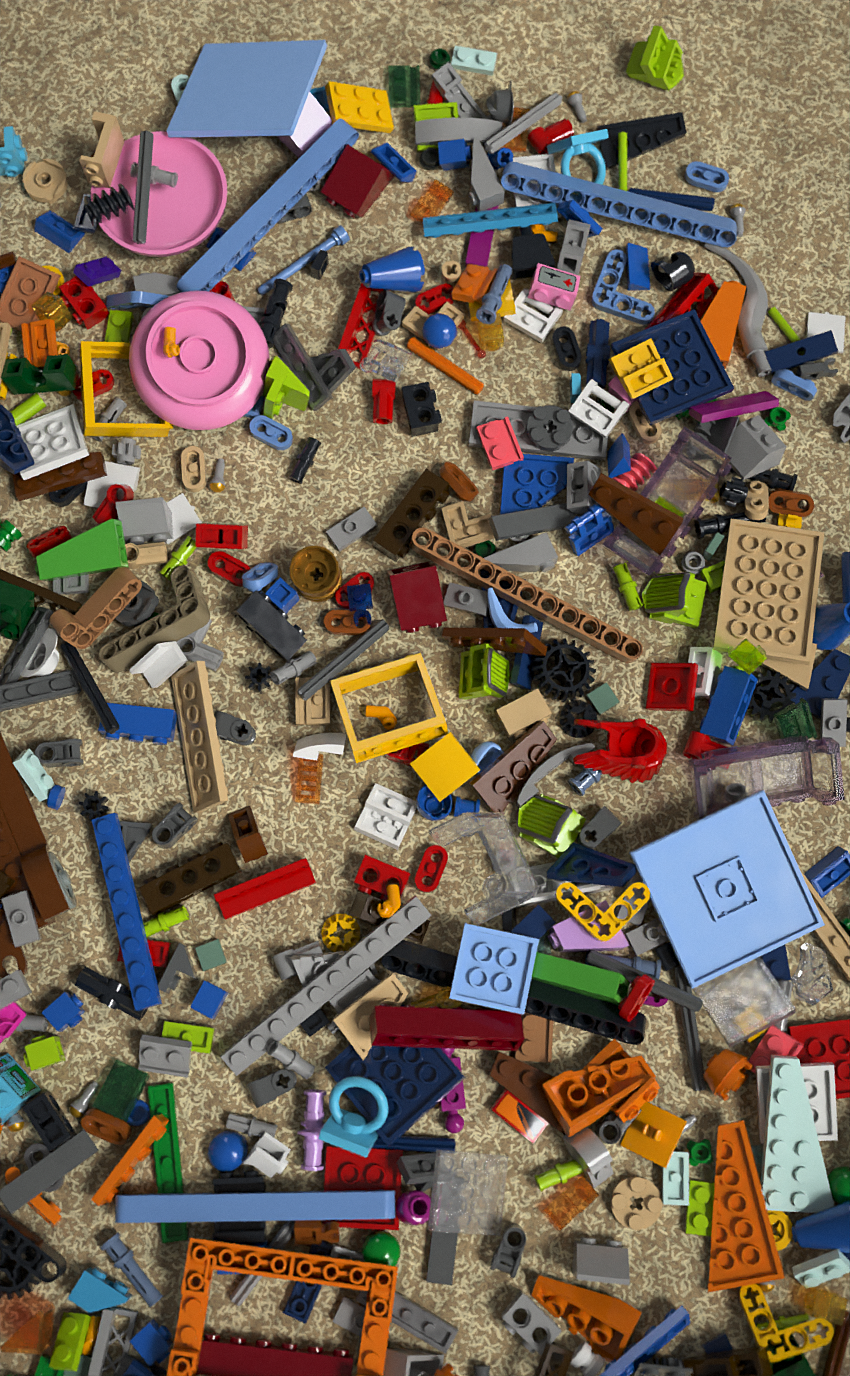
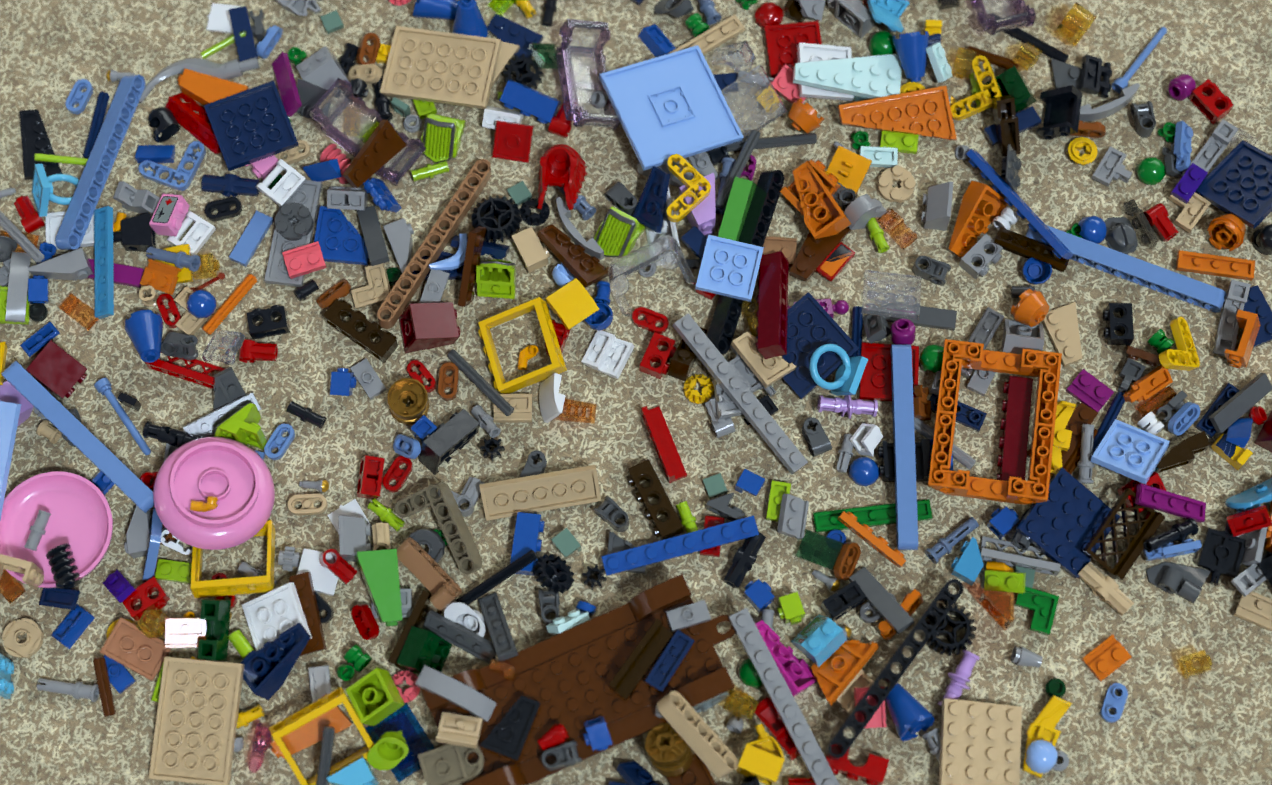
camera: 85 degrees left, 5 degrees down
(95, 747) = (553, 573): none -> black gear
(136, 771) = (566, 543): none -> sand green panel
(143, 187) = (51, 536): dark grey axle -> none
(160, 663) = (478, 523): white panel -> none
(247, 834) = (619, 456): reddish brown slope -> none
(290, 1059) = (795, 421): light grey pin -> none
(342, 497) = (342, 382): none -> blue brick
(359, 600) = (431, 368): clear blue plate -> none
(391, 905) = (678, 341): light orange arm -> none
(463, 449) = (307, 289): none -> black pin
(530, 383) = (251, 238): none -> medium blue tile
(572, 211) = (106, 194): blue plate -> none
(575, 386) = (259, 203): medium azure tile -> none
(640, 369) = (253, 146): yellow slope -> none
(640, 990) = (744, 168): red plate -> none
(688, 1299) = (960, 152): none -> light grey hinge
(747, 655) = (495, 79): clear neon green panel -> none
(829, 458) = (332, 22): none -> sand green tile
(834, 719) = (544, 31): light grey plate -> none

